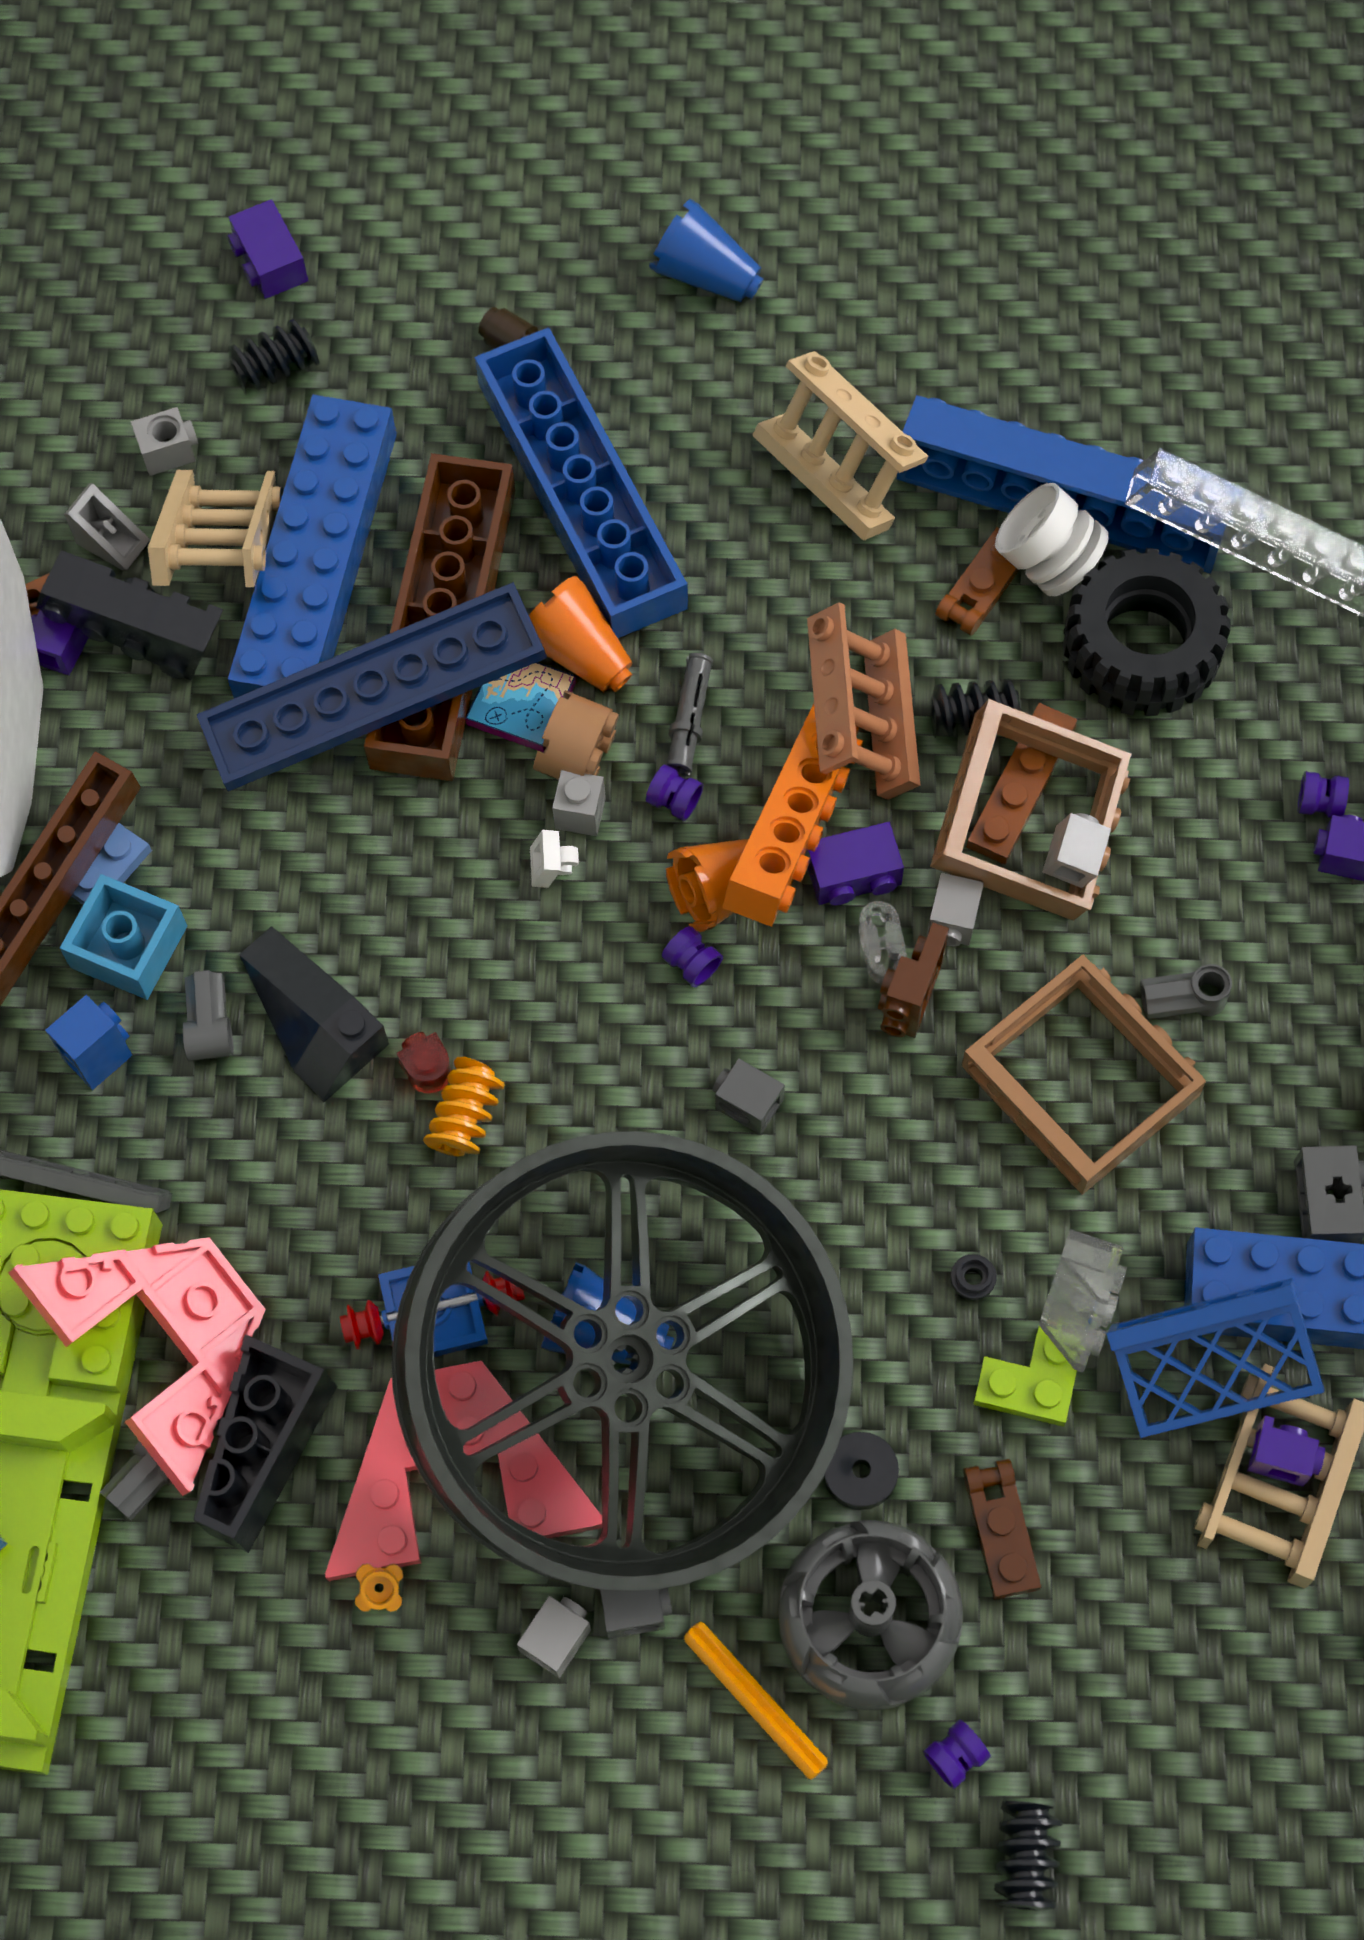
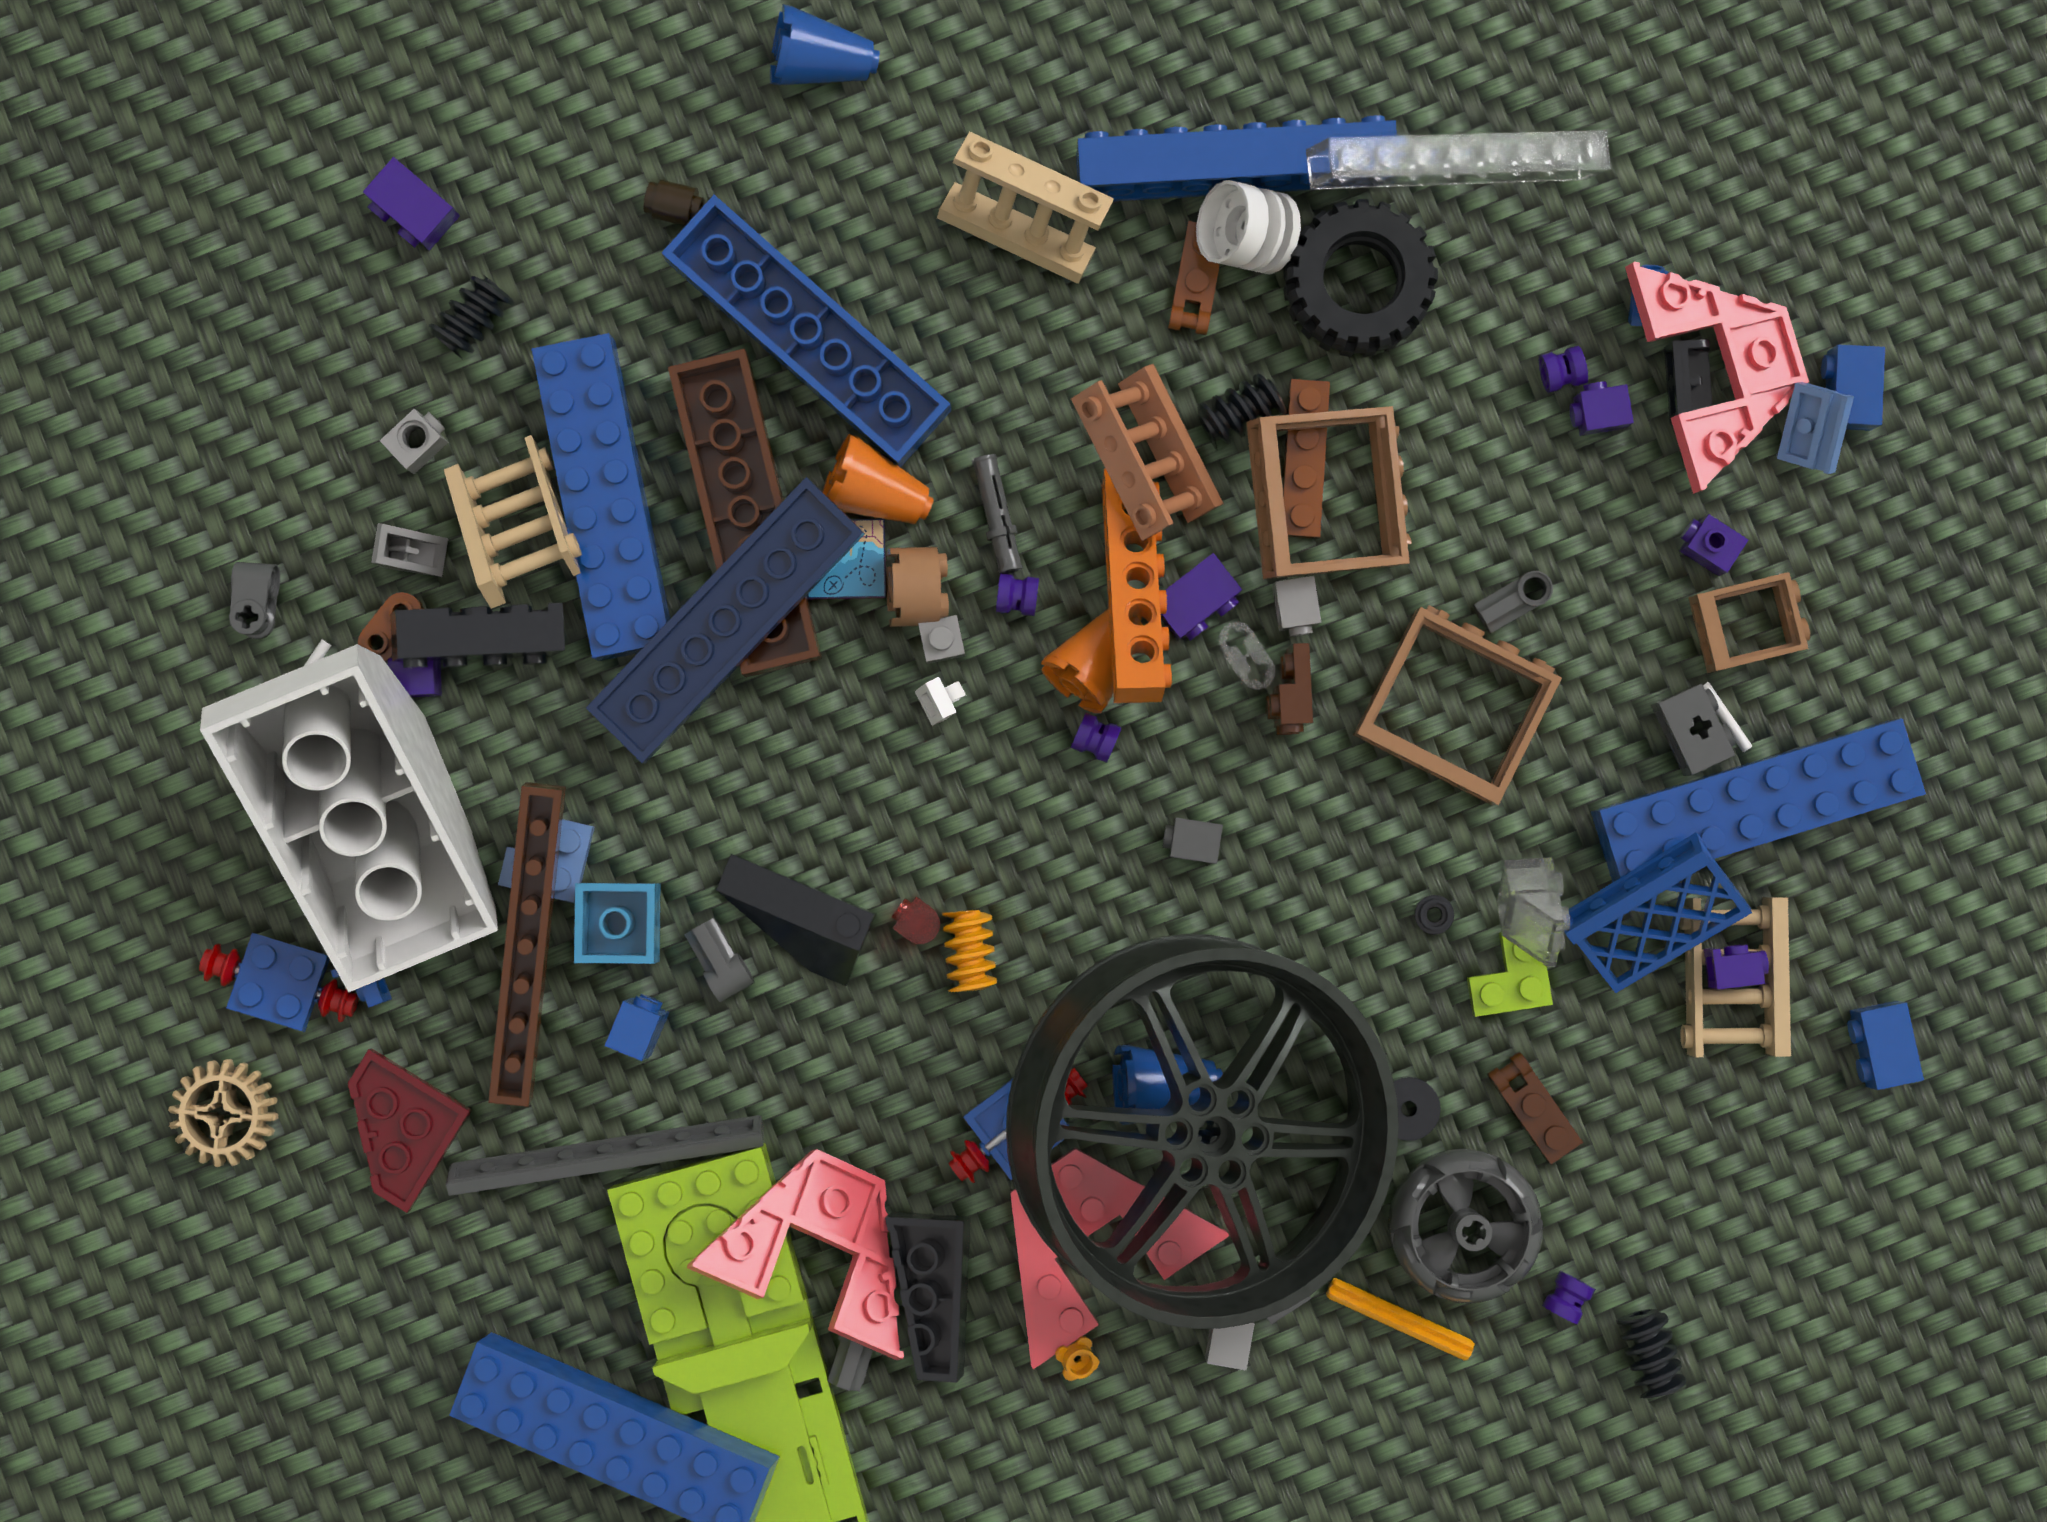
camera: 30 degrees left, 20 degrees up
(1077, 849) = (1384, 520): brick -> none

